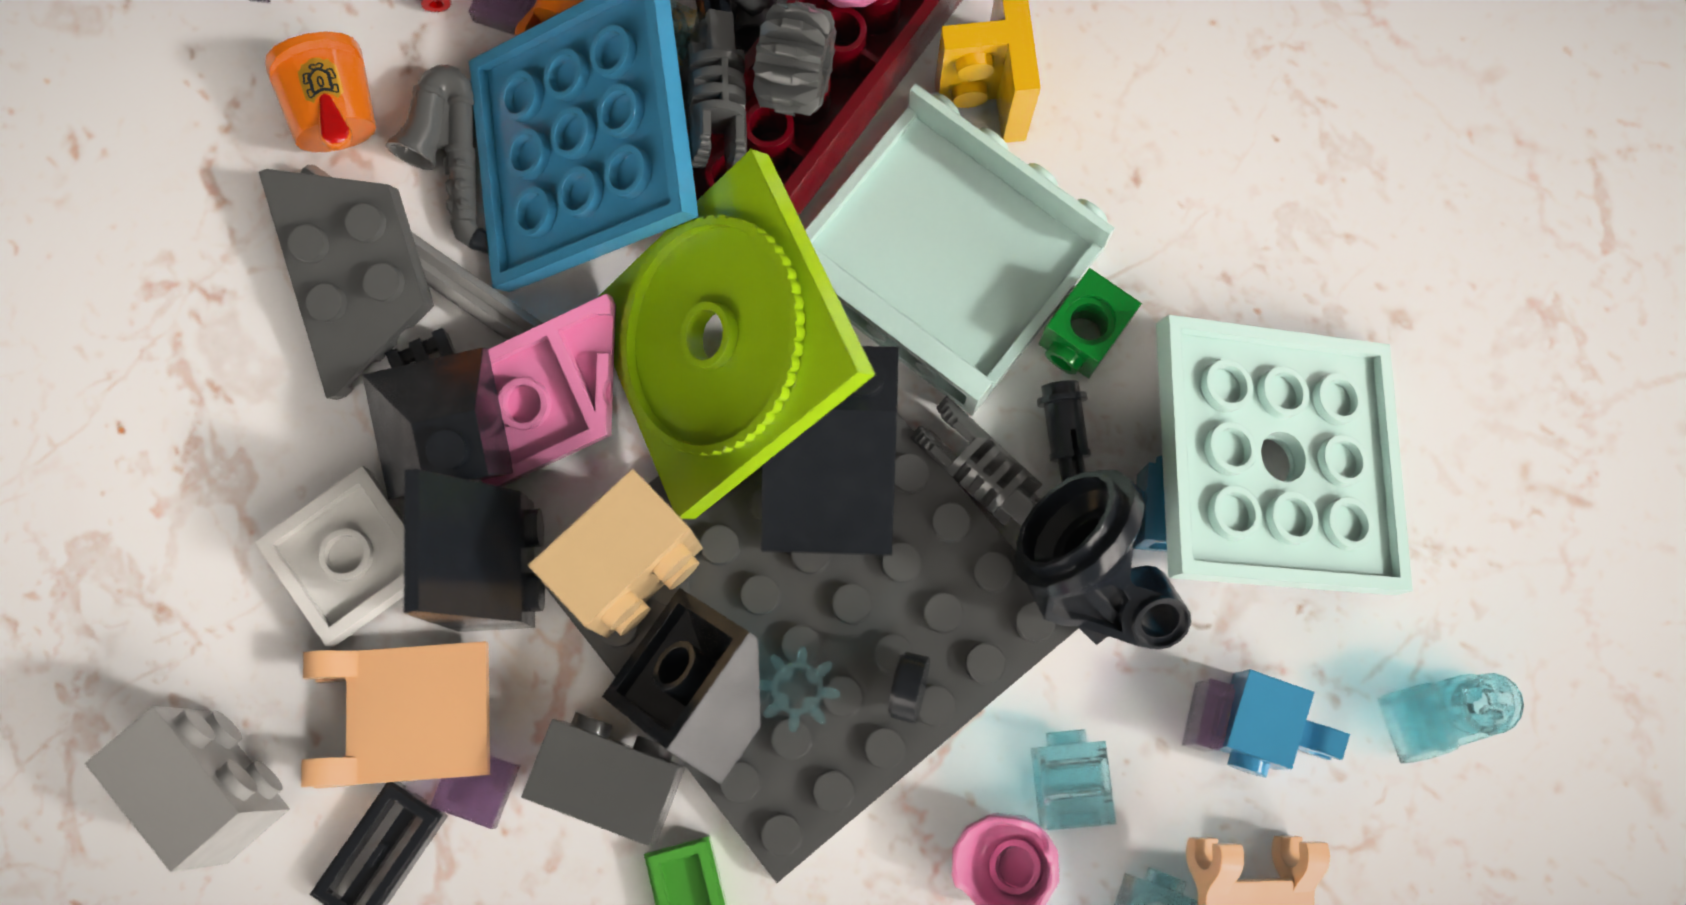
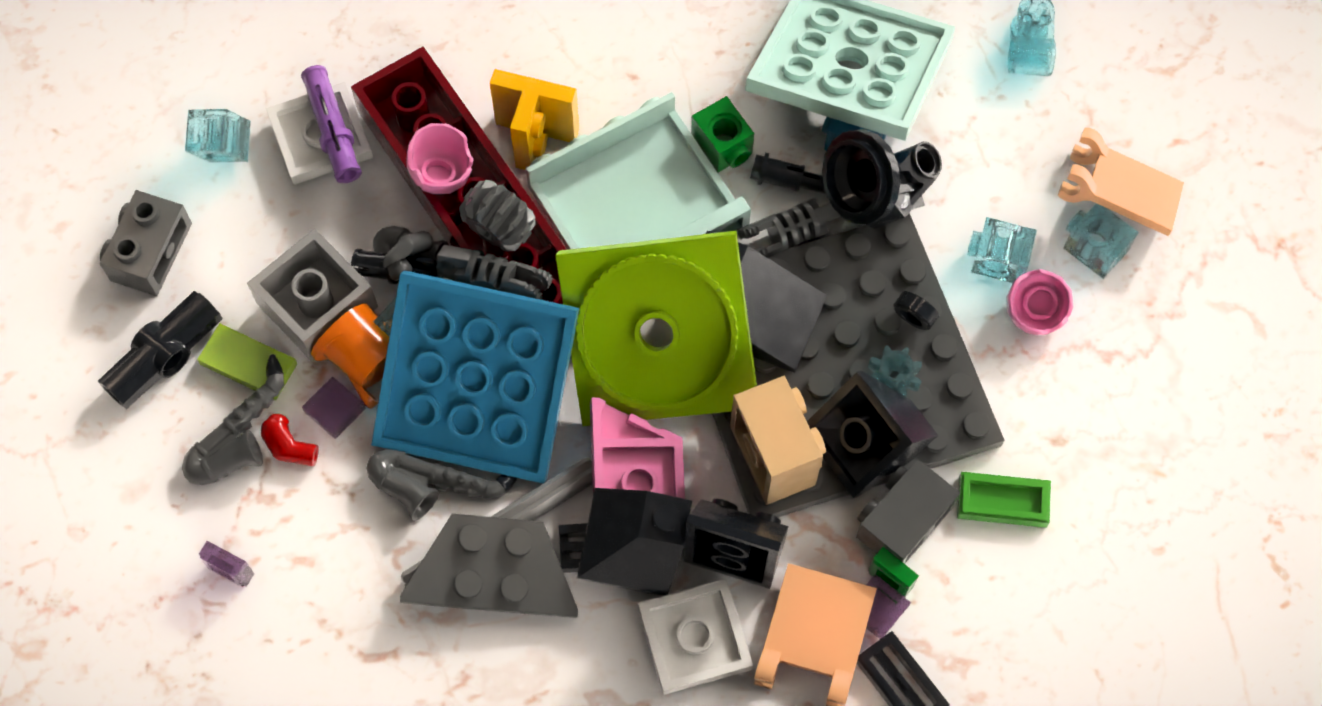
camera: 70 degrees left, 10 degrees down
(322, 90) = (361, 542): orange hat -> none
(508, 805) = (893, 572): none -> green tile
(1208, 715) = (988, 162): clear purple tile -> none
(1272, 724) = (1004, 132): dark azure brick -> none

